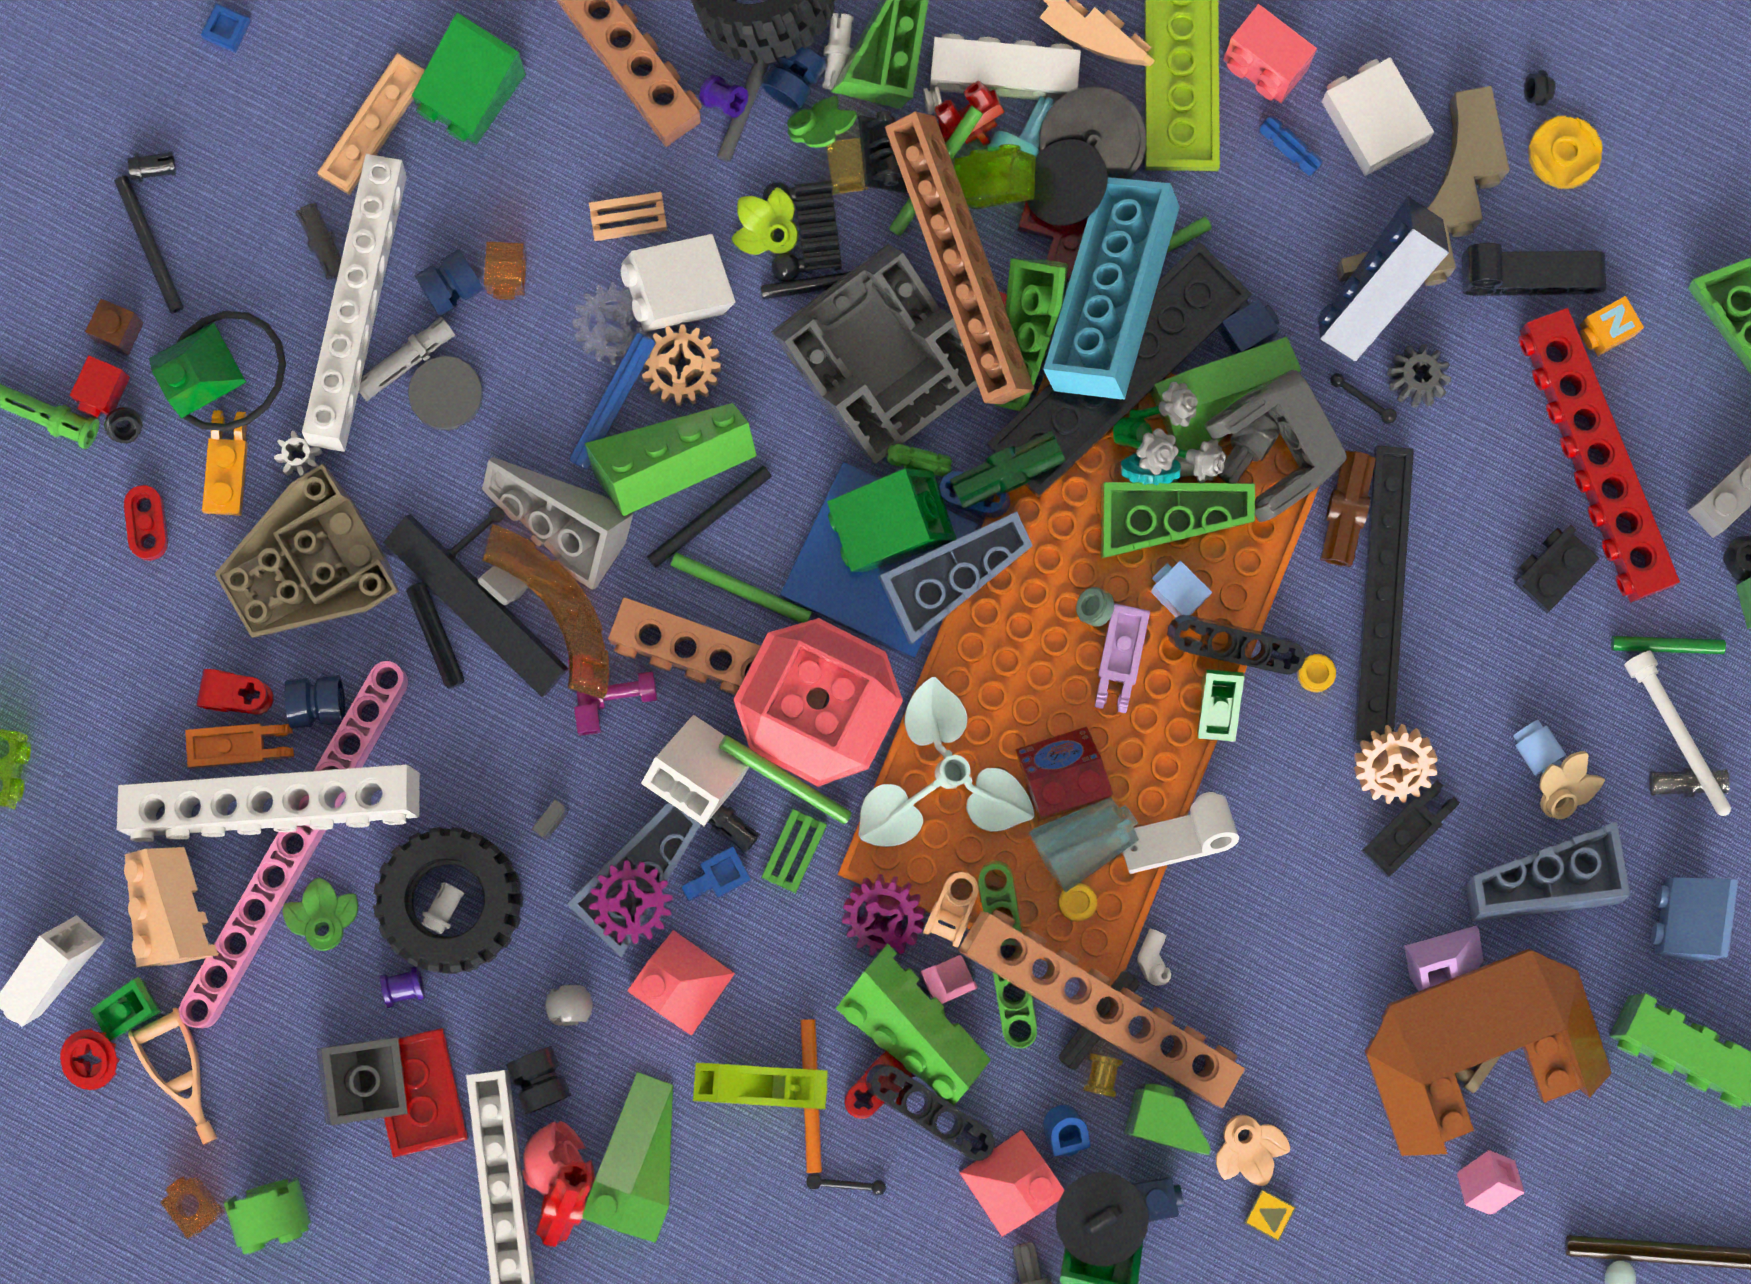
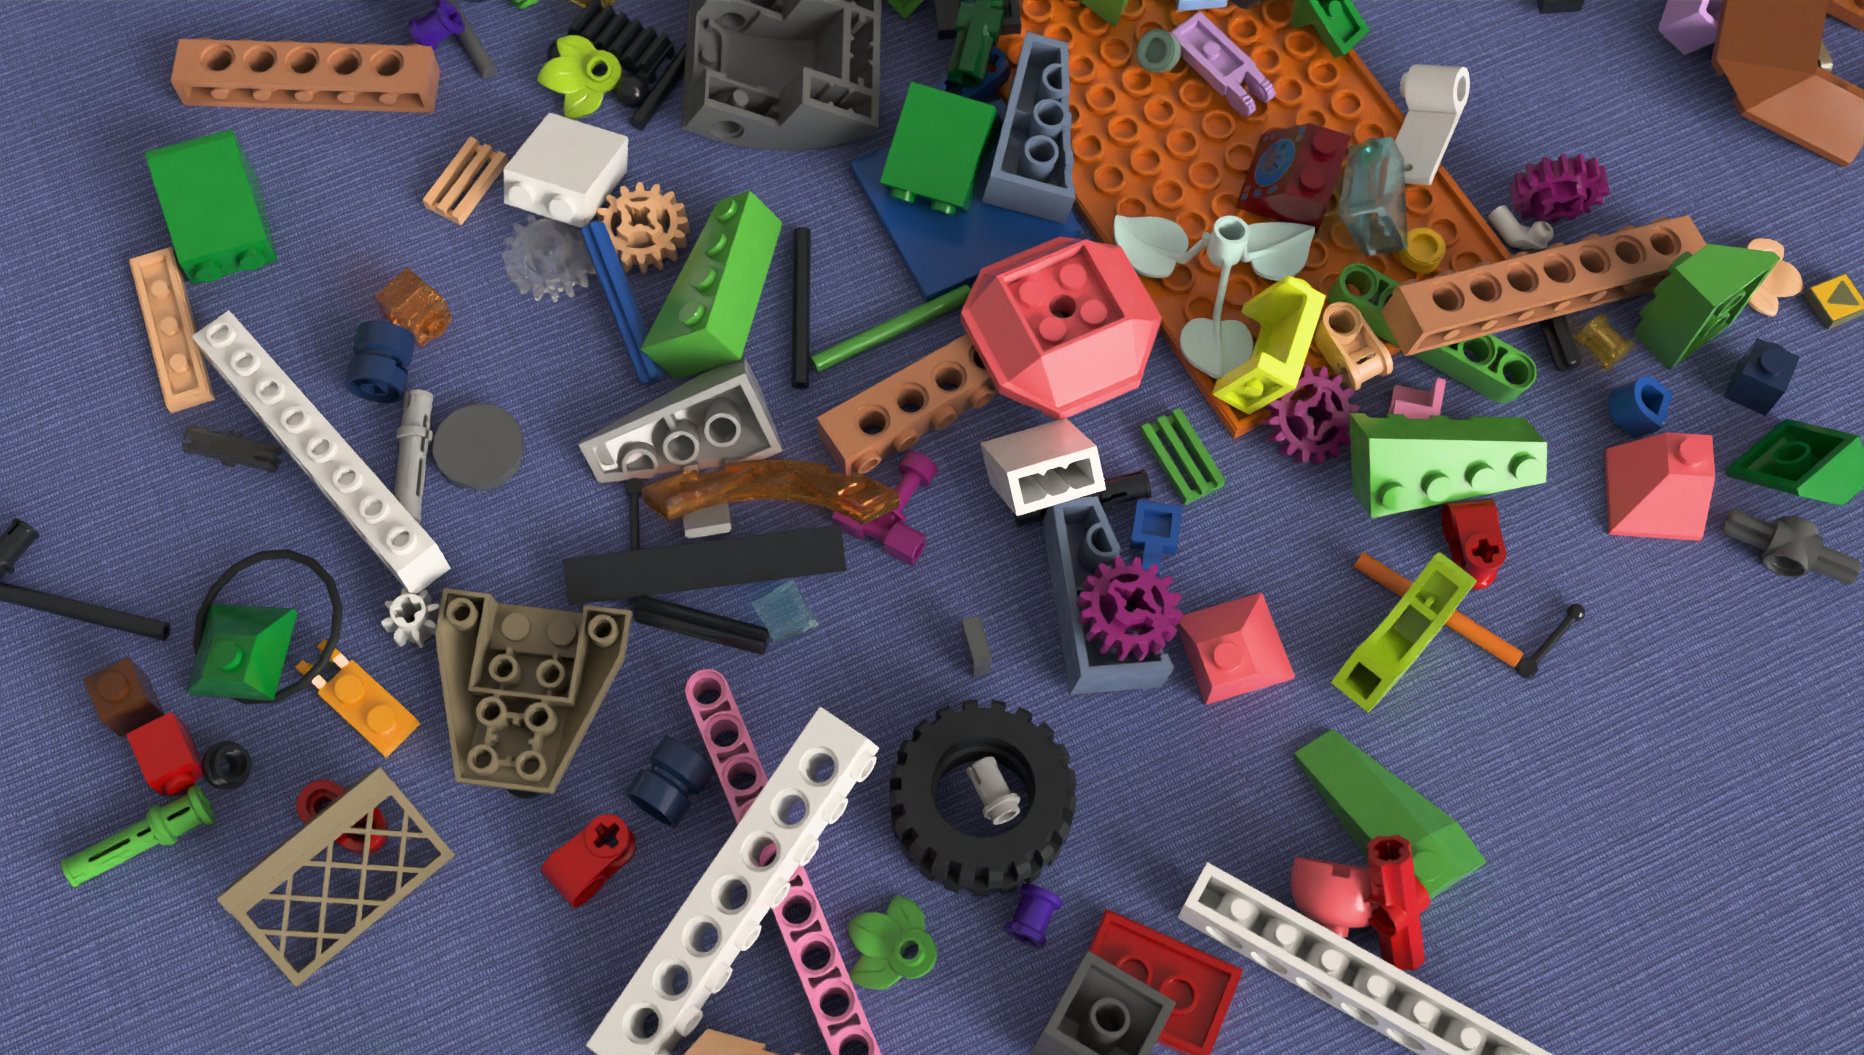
camera: 50 degrees left, 15 degrees down
(115, 520) = (310, 840): none -> dark tan fence
(234, 745) = (644, 899): orange hinge -> none
(482, 682) = (785, 612): none -> clear light blue slope
(538, 1080) = (1237, 847): black wheel -> none
(569, 1005) = (1179, 763): light grey piece -> none
(785, 779) = (1109, 405): bright green bar -> none
(903, 862) = (1287, 321): none -> neon yellow panel
(919, 459) = (893, 97): bright green axle -> none
(932, 1109) = (1542, 509): black beam -> none
(1102, 1219) = (1758, 422): black shield -> none
(1194, 965) = (1559, 188): none -> magenta gear

